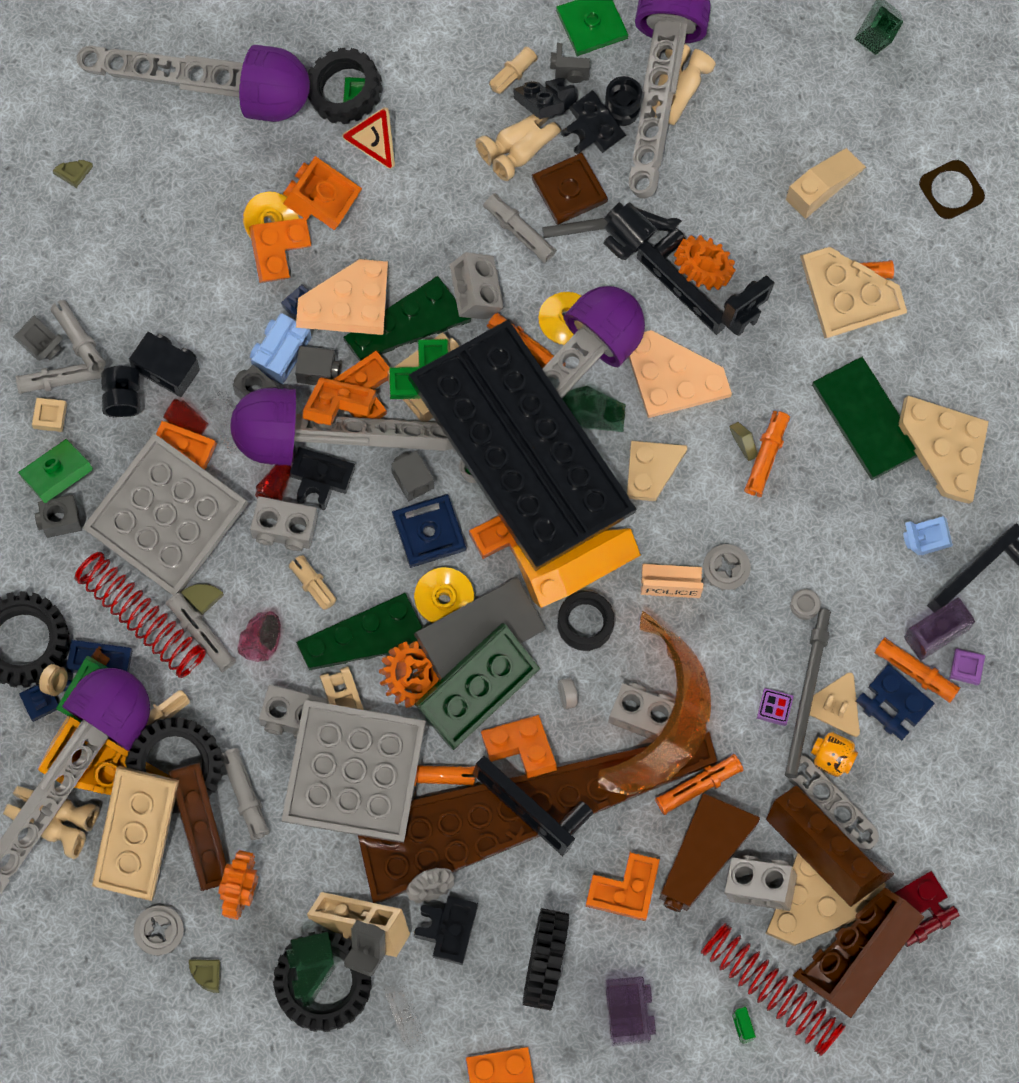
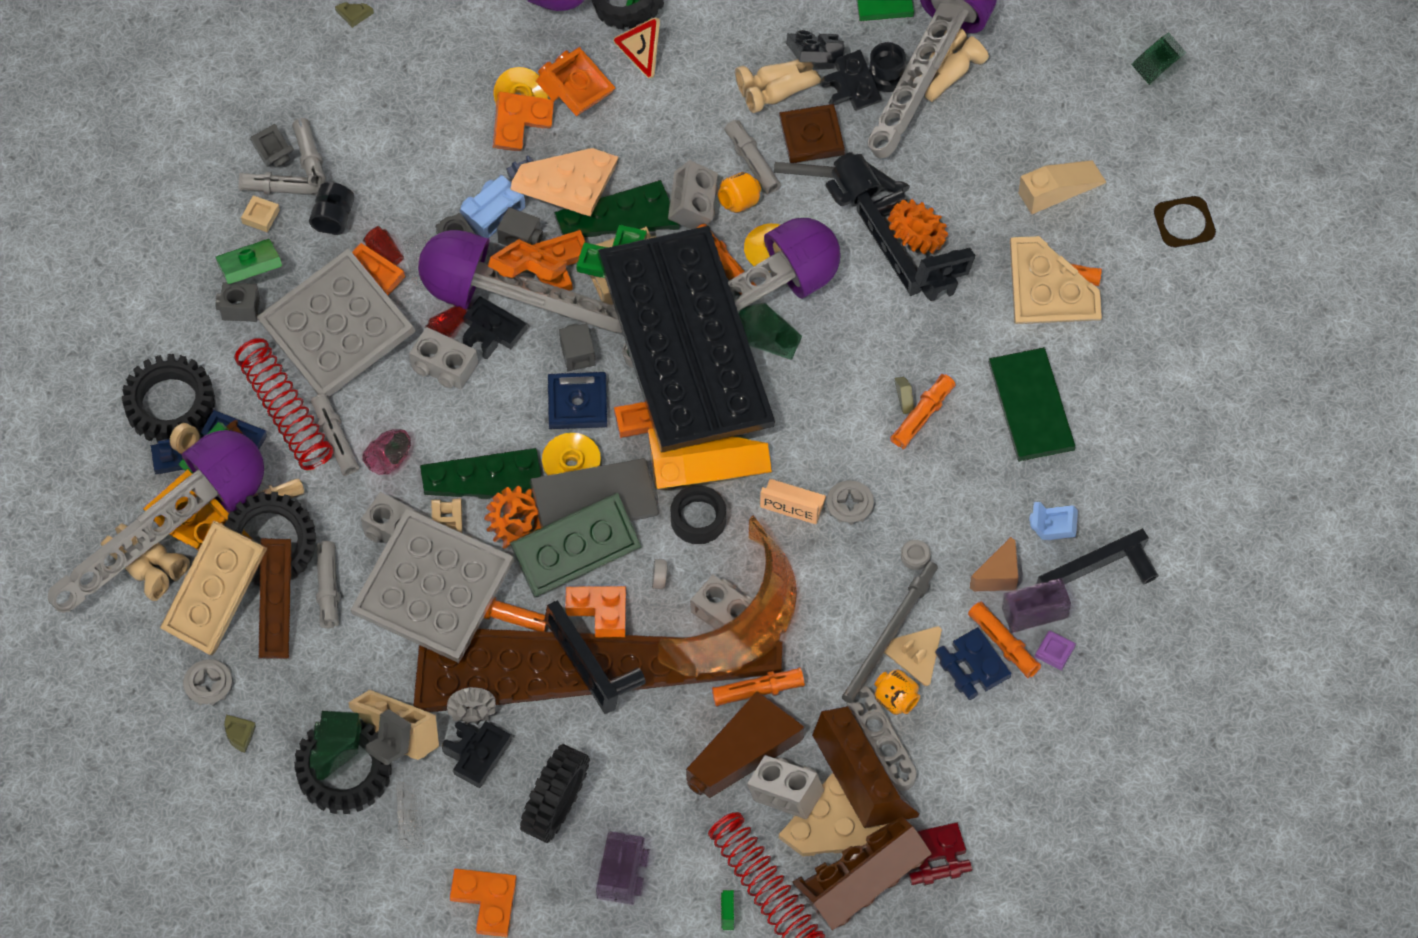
camera: 20 degrees right, 10 degrees down
(165, 363) = (380, 194): black brick -> none
(202, 596) = (347, 405): olive tile -> none
(238, 884) = (292, 656): orange gear -> none
(313, 583) = (453, 417): tan axle -> none
(513, 70) = (793, 18): tan axle -> none
(519, 270) = (739, 192): none -> light orange head
(570, 68) = (848, 28): dark grey bracket -> none
(628, 897) = (656, 768): orange plate -> none
(651, 468) = (807, 397): tan wing -> none
(674, 376) = (857, 321): light nougat plate -> none
(775, 707) = (855, 638): medium lavender tile -> none
(894, 600) = (999, 571): none -> medium nougat slope
(946, 445) = (1099, 445): tan plate -> none

